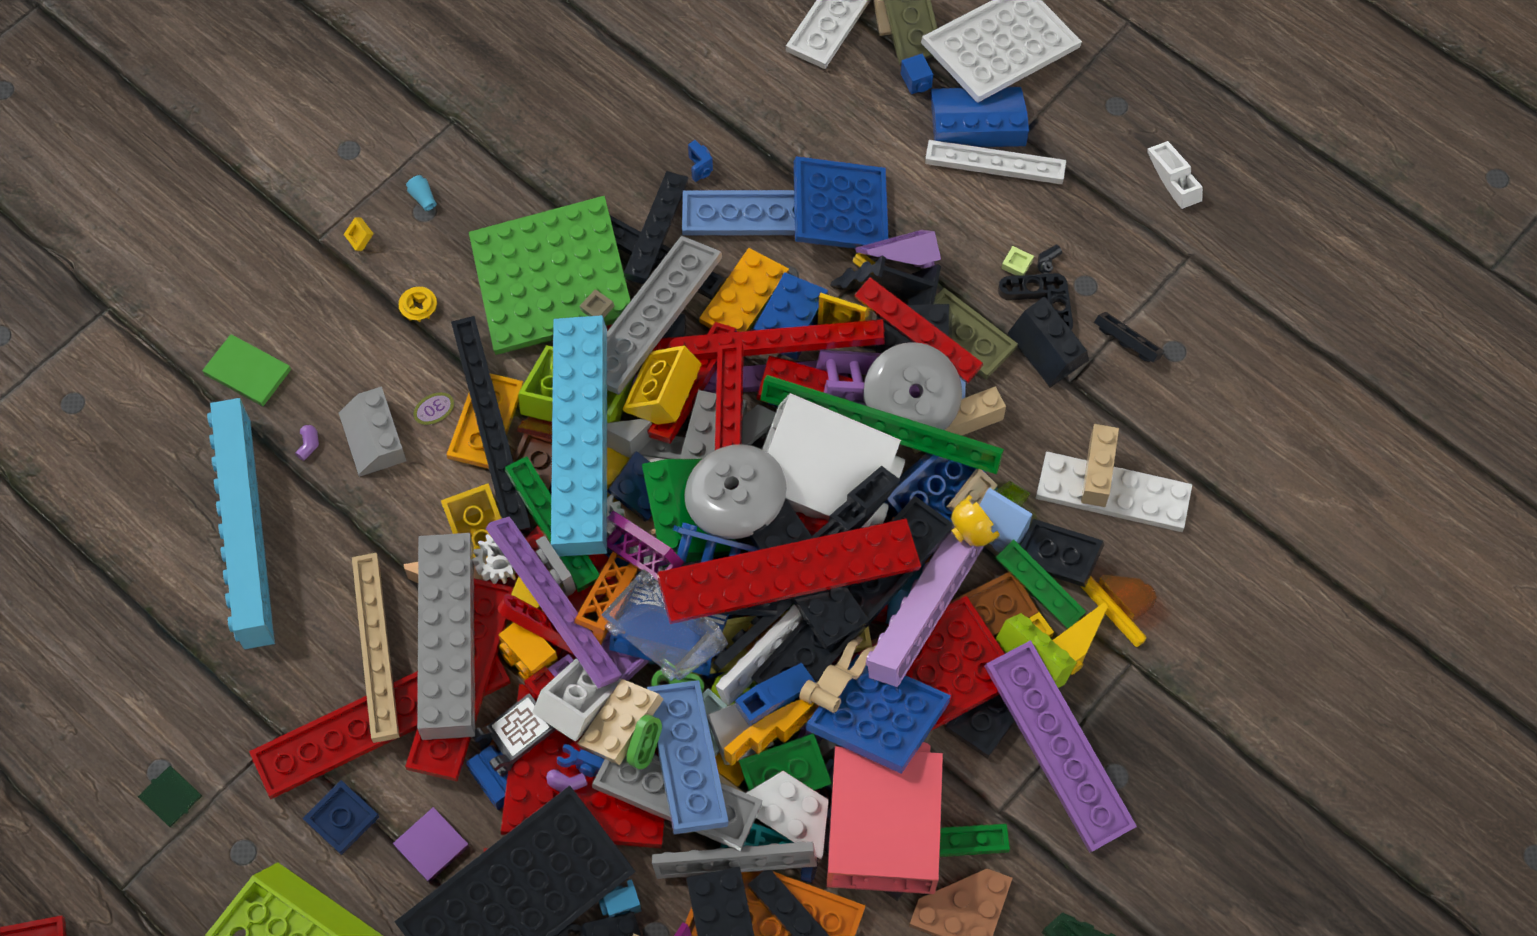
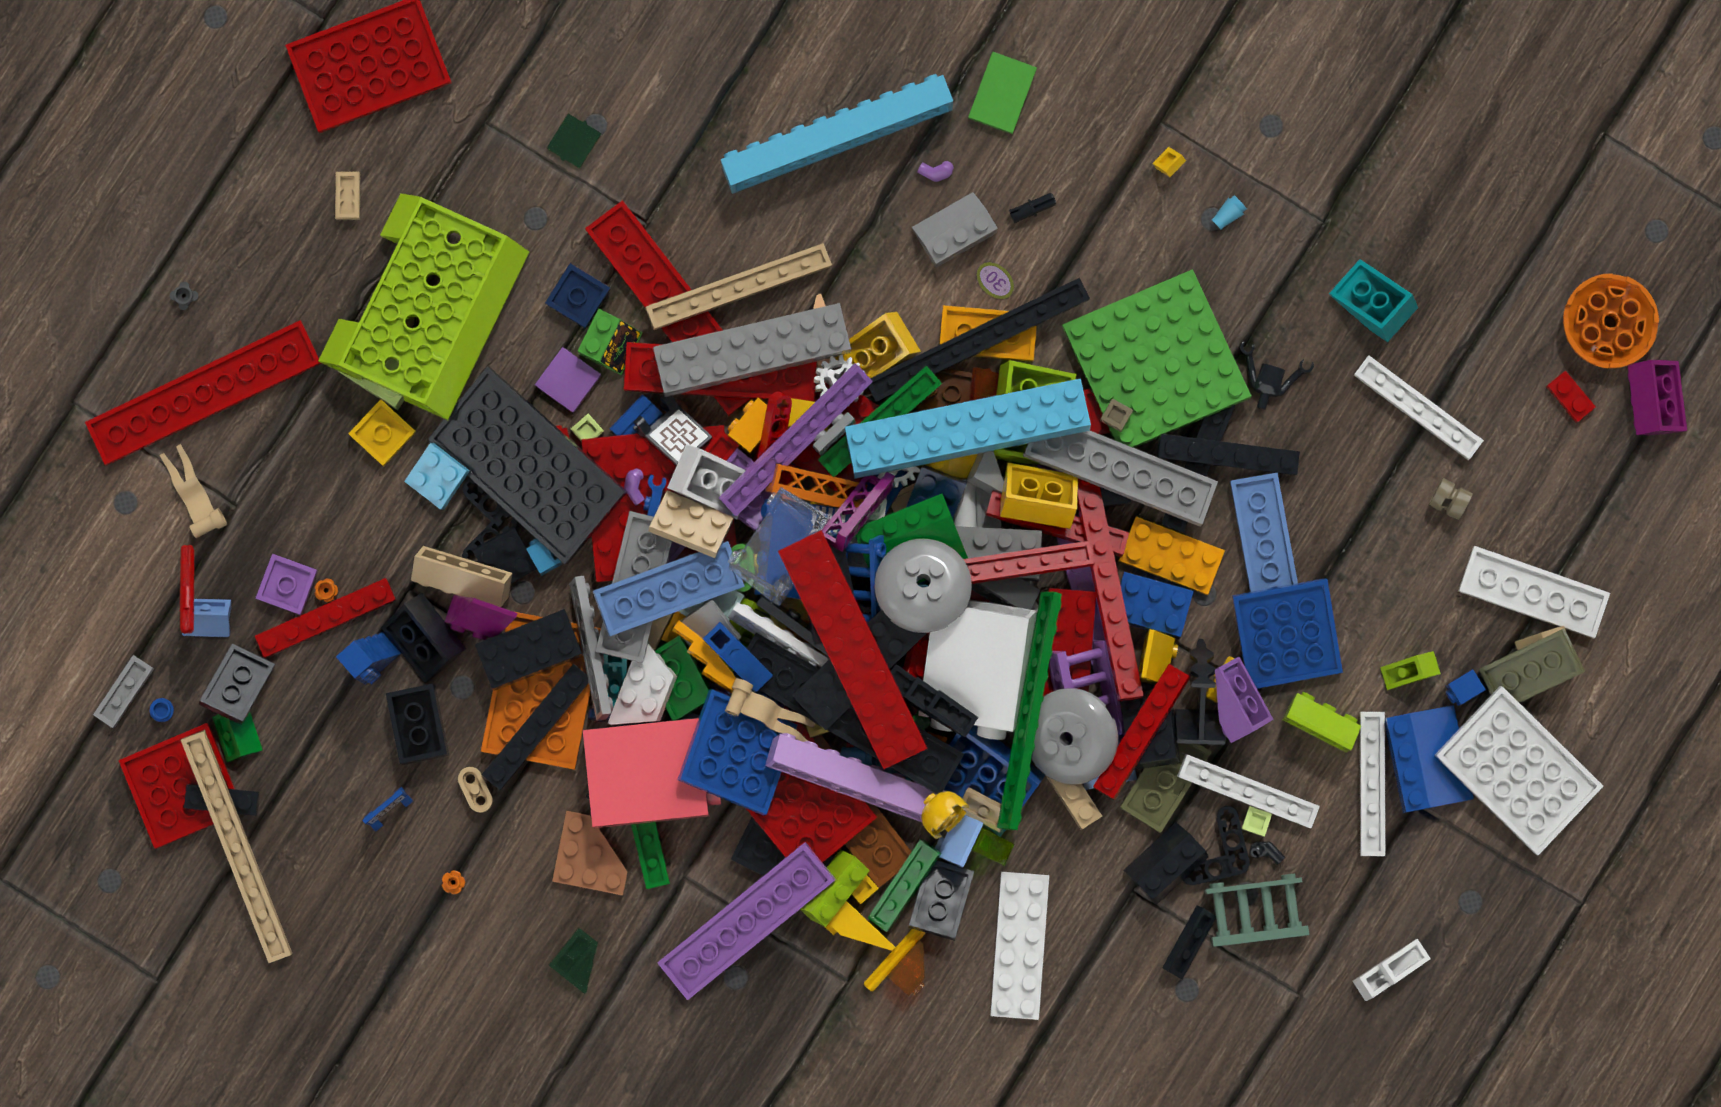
camera: 80 degrees right, 20 degrees up
(369, 360) = (1032, 207): none -> black axle
(399, 792) = (607, 341): none -> slope
(420, 295) = (1103, 227): yellow gear -> none
(489, 831) = (587, 428): none -> yellowish green tile
(537, 88) = (1374, 300): none -> teal slope
(588, 183) = (1270, 378): none -> black piece
(644, 741) = (671, 548): bright green plate -> none
(646, 71) = (1418, 407): none -> white plate
(702, 159) = (1322, 483): blue bracket -> none
(738, 56) = (1450, 499): none -> dark tan wheel
(893, 114) = (1410, 670): none -> lime slope
(931, 190) = (1322, 722): none -> lime slope
(987, 261) = (1248, 791): none -> white plate
(1099, 465) = (1034, 926): tan brick -> none
(1126, 265) = (1247, 933): none -> sand green fence

